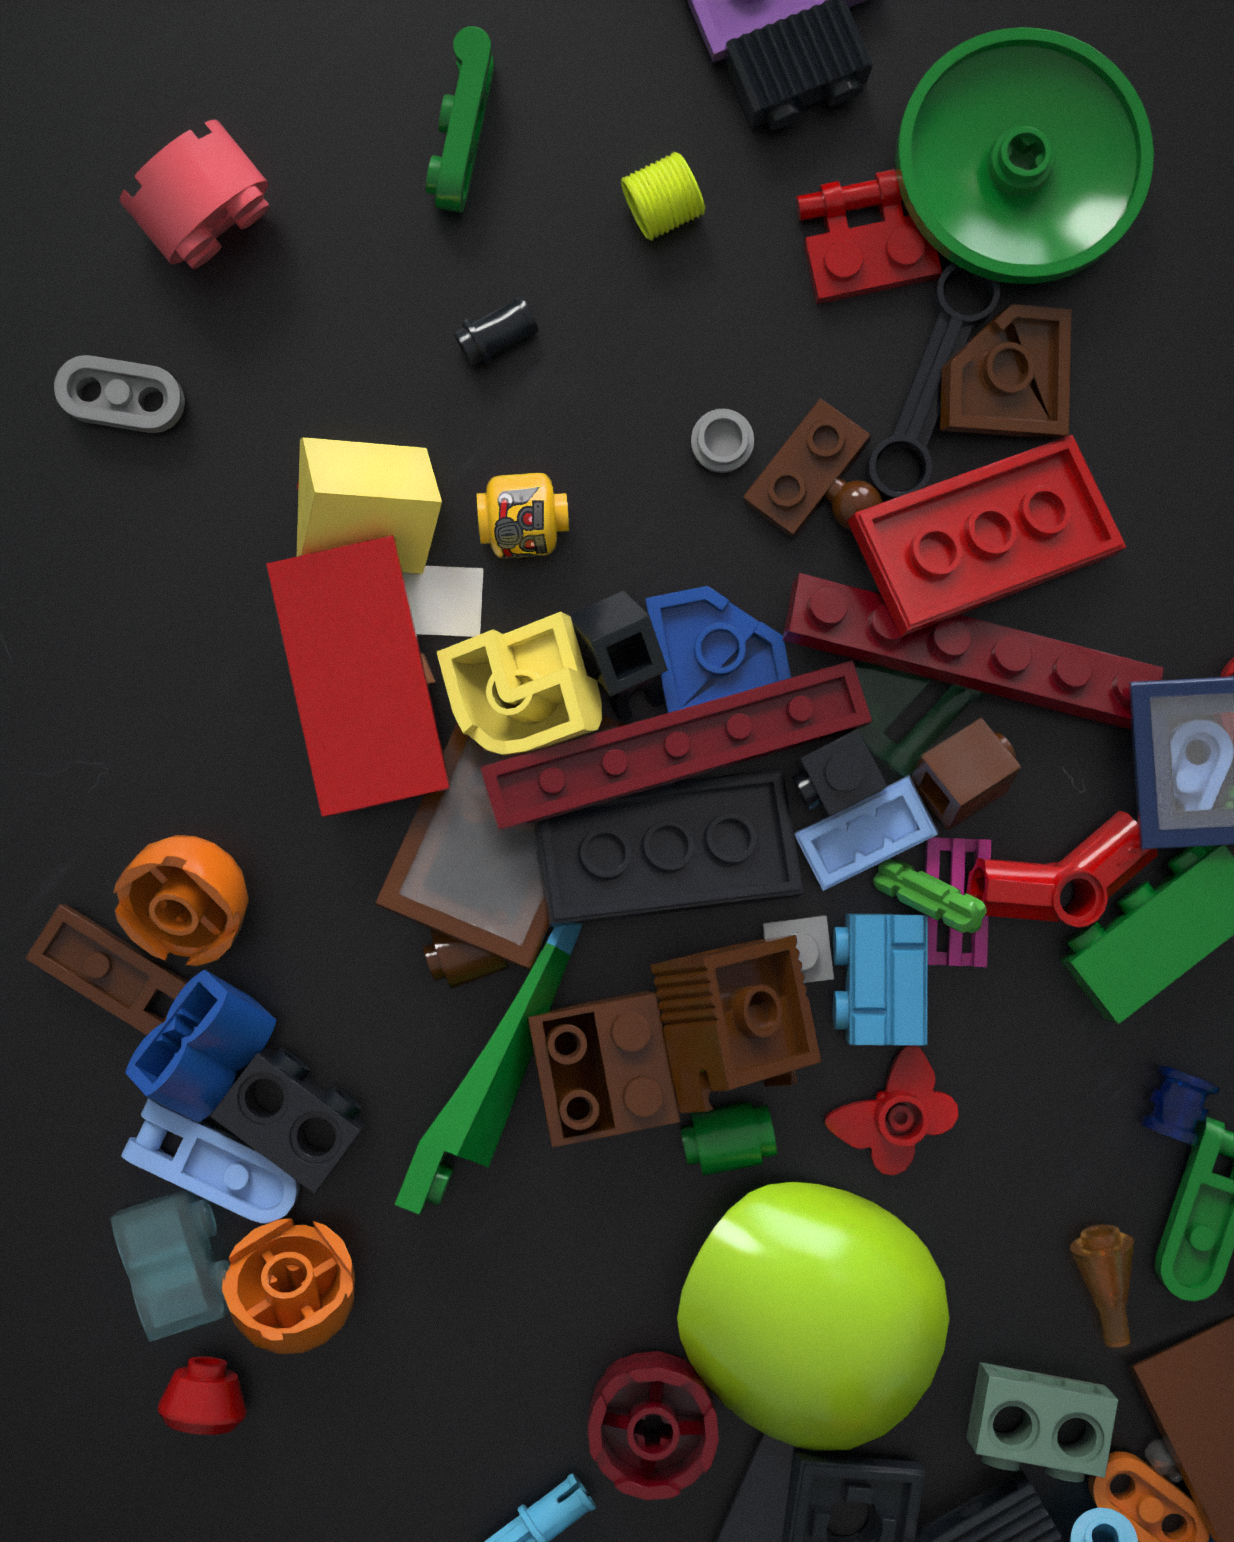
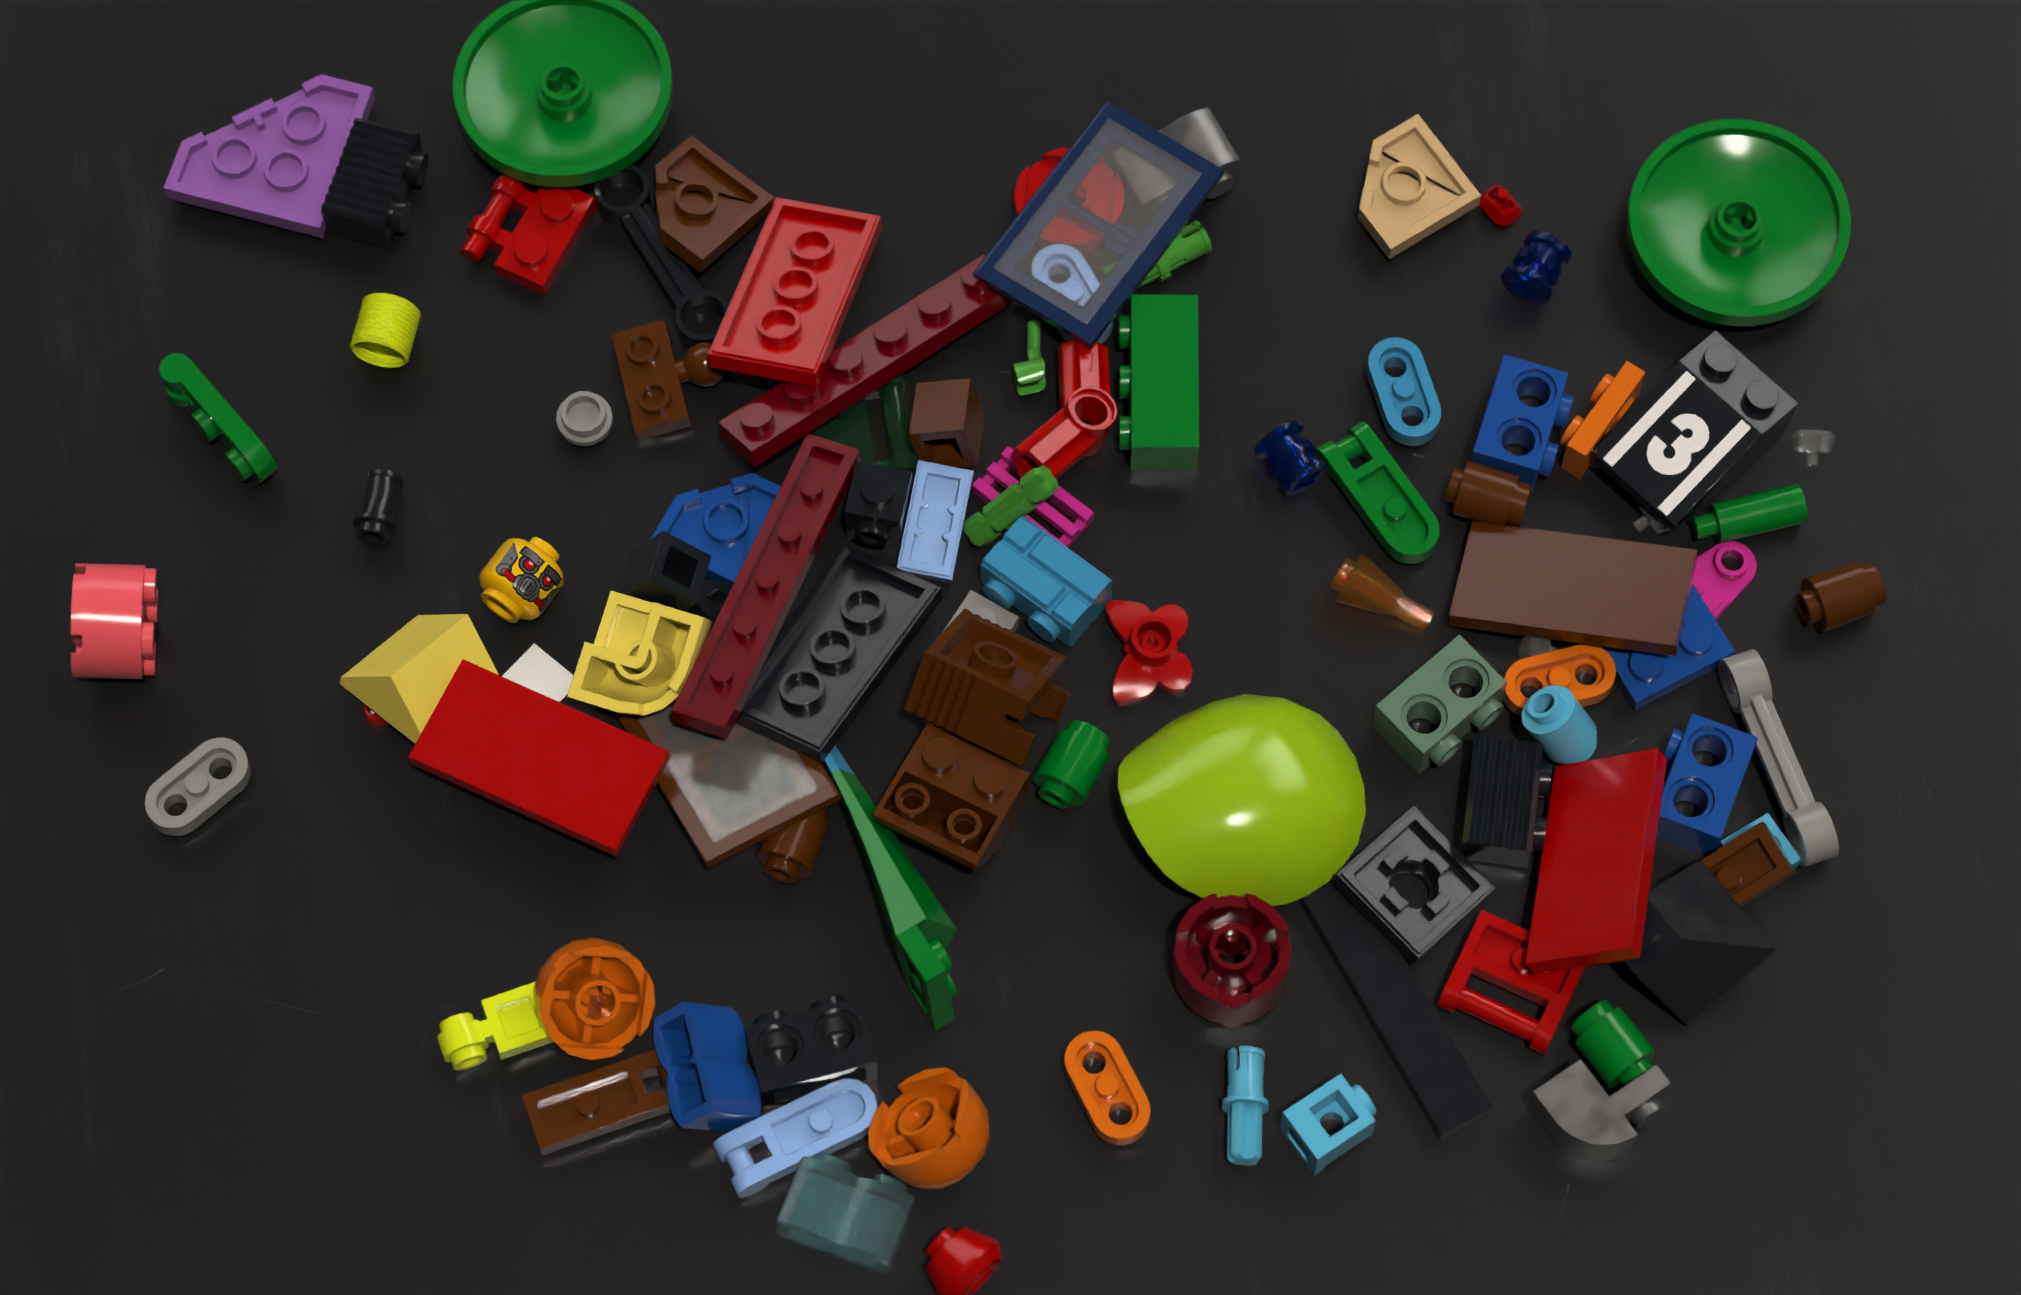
camera: 55 degrees left, 20 degrees down
(115, 837) = (508, 1023): none -> neon yellow plate
(459, 1394) = (1109, 1090): none -> orange plate
(1079, 803) = (1030, 374): none -> bright green hand

